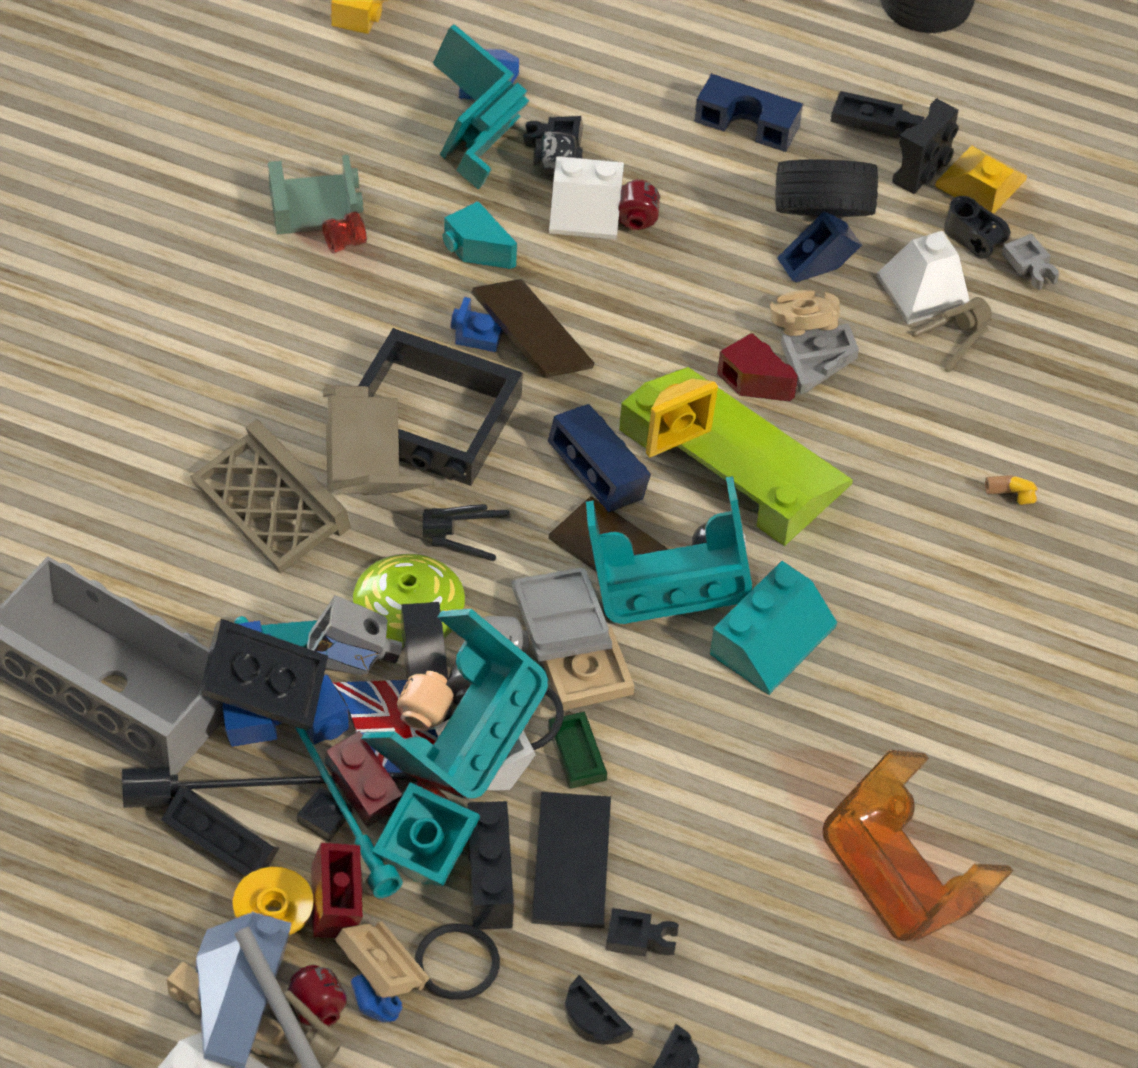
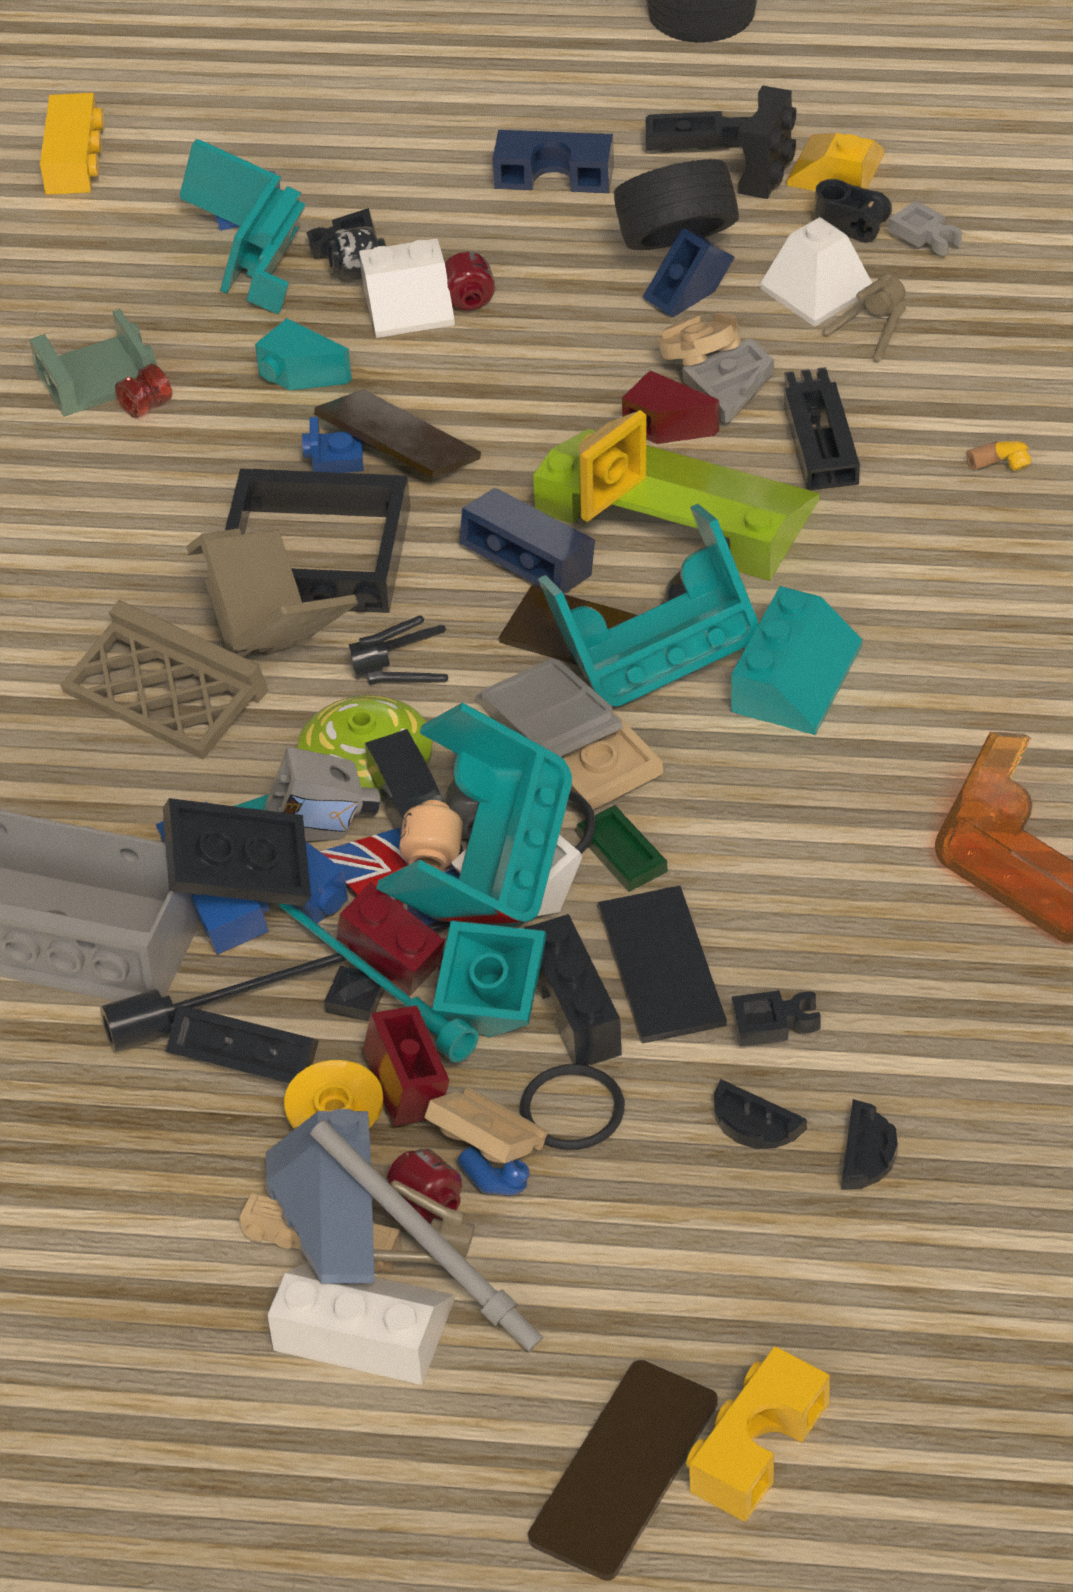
camera: 10 degrees left, 5 degrees down
(872, 440) = (824, 454): none -> black hinge

